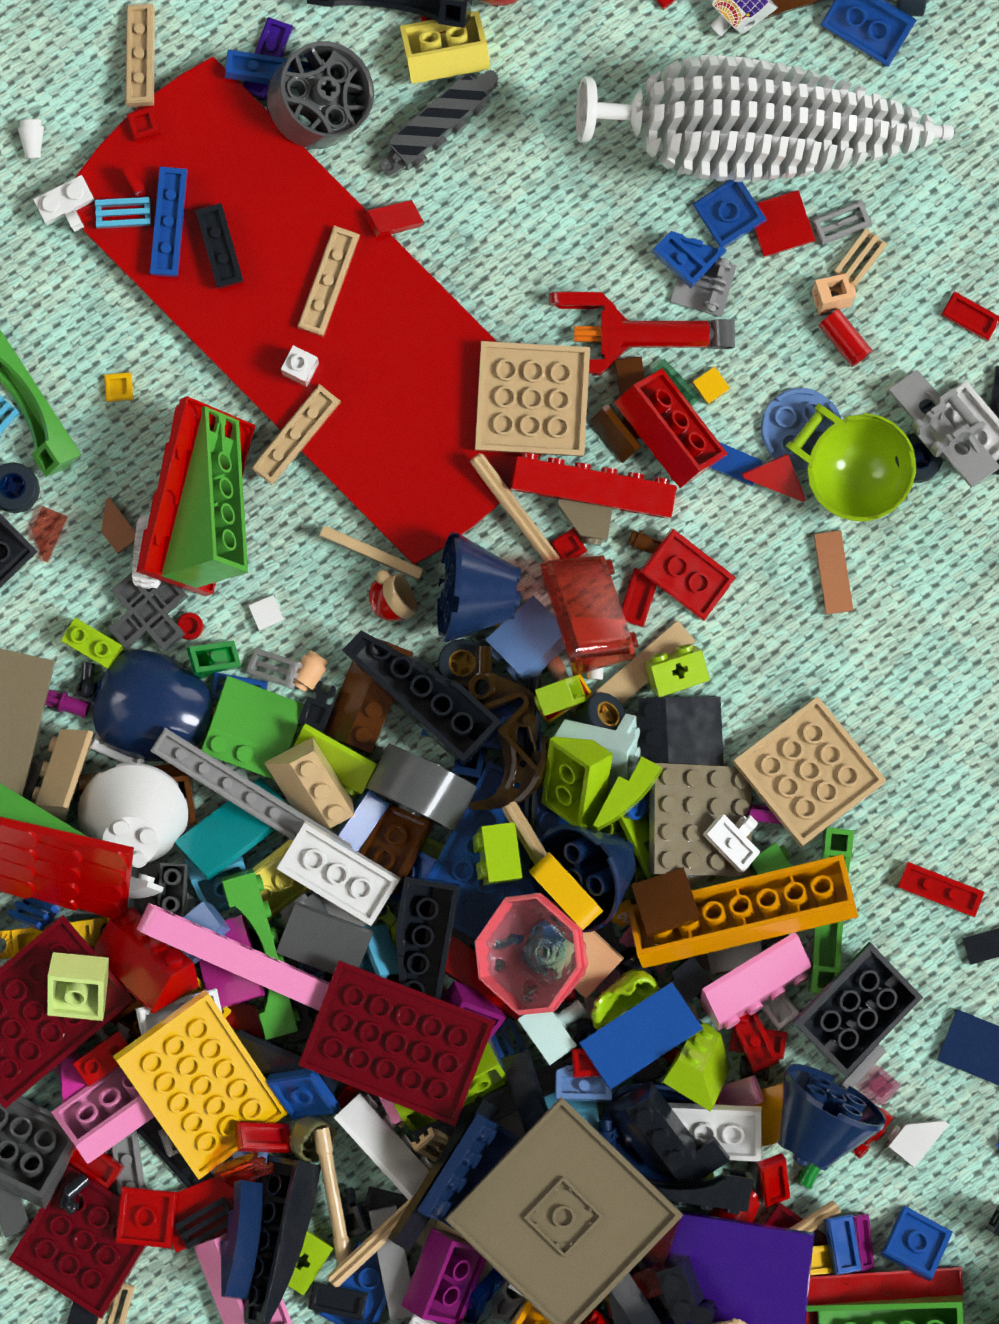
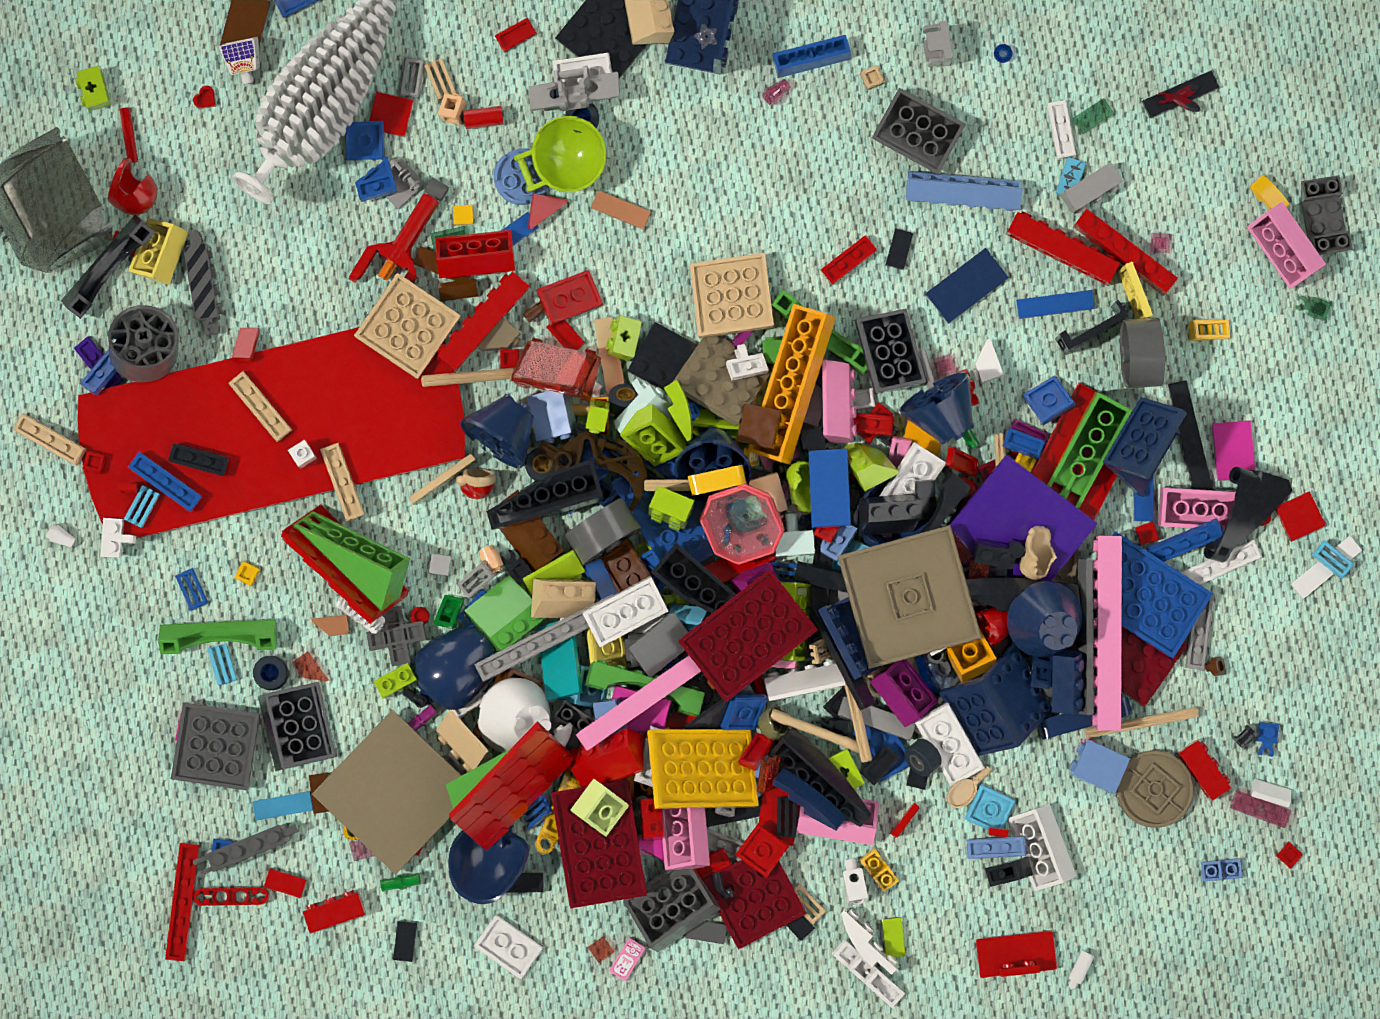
camera: 60 degrees left, 0 degrees up
(48, 351) = (198, 604): none -> blue tile

